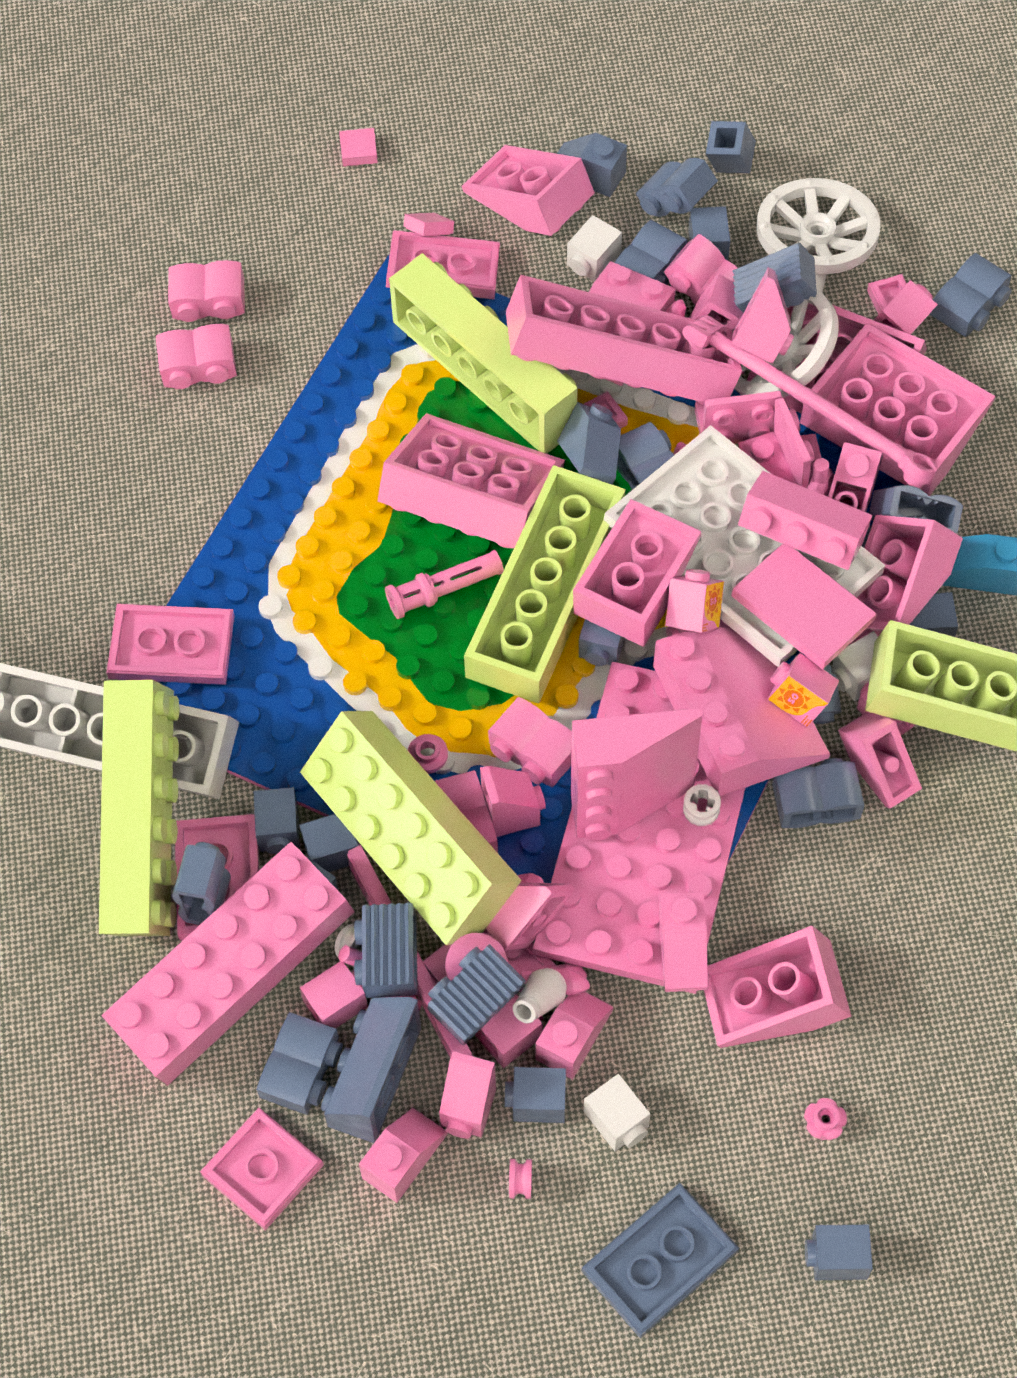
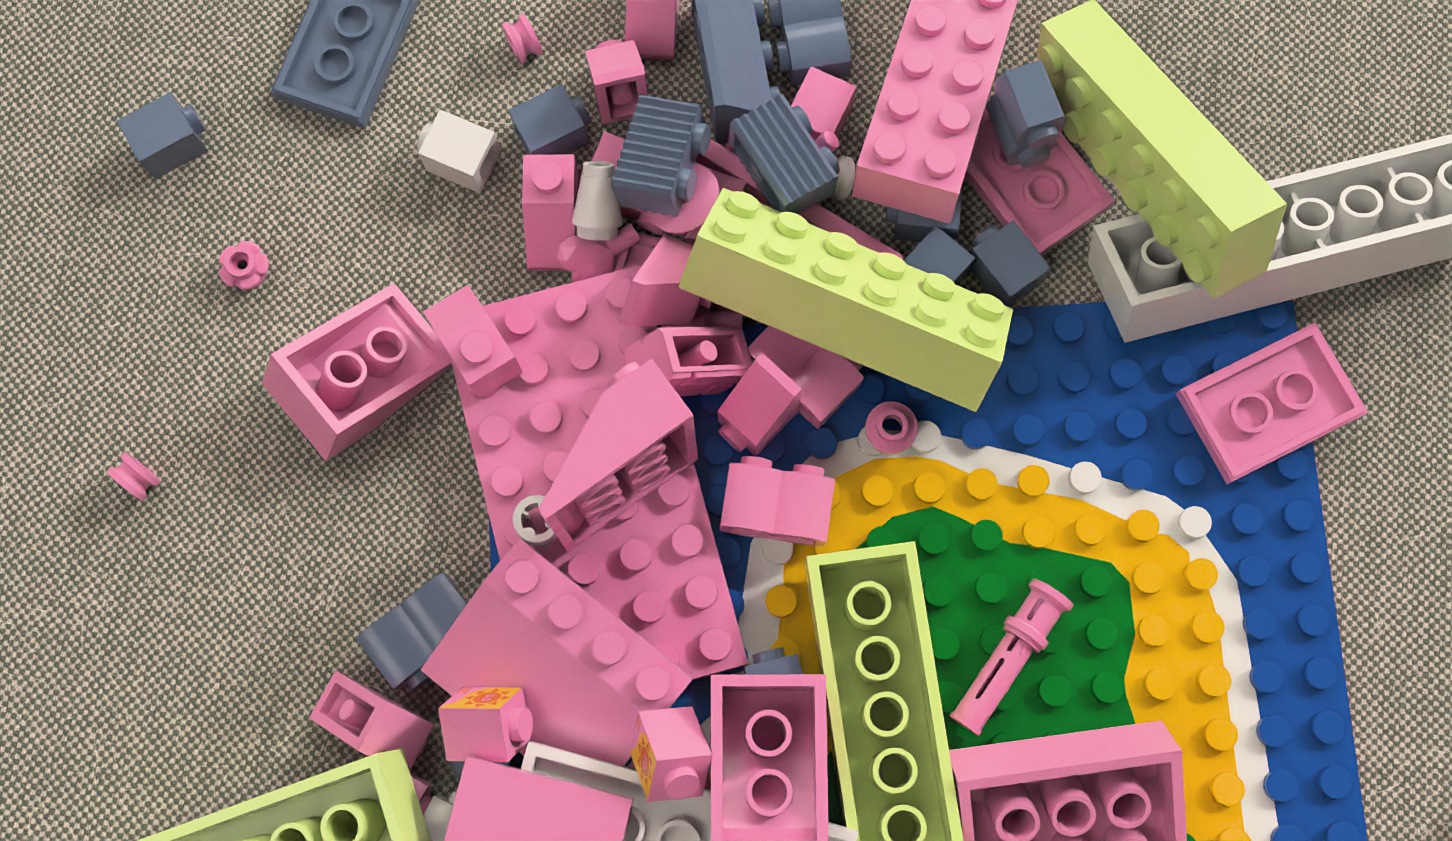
camera: 150 degrees right, 15 degrees up
(542, 844) = (695, 357): none -> bright pink brick
(975, 1002) = (133, 476): none -> bright pink bush

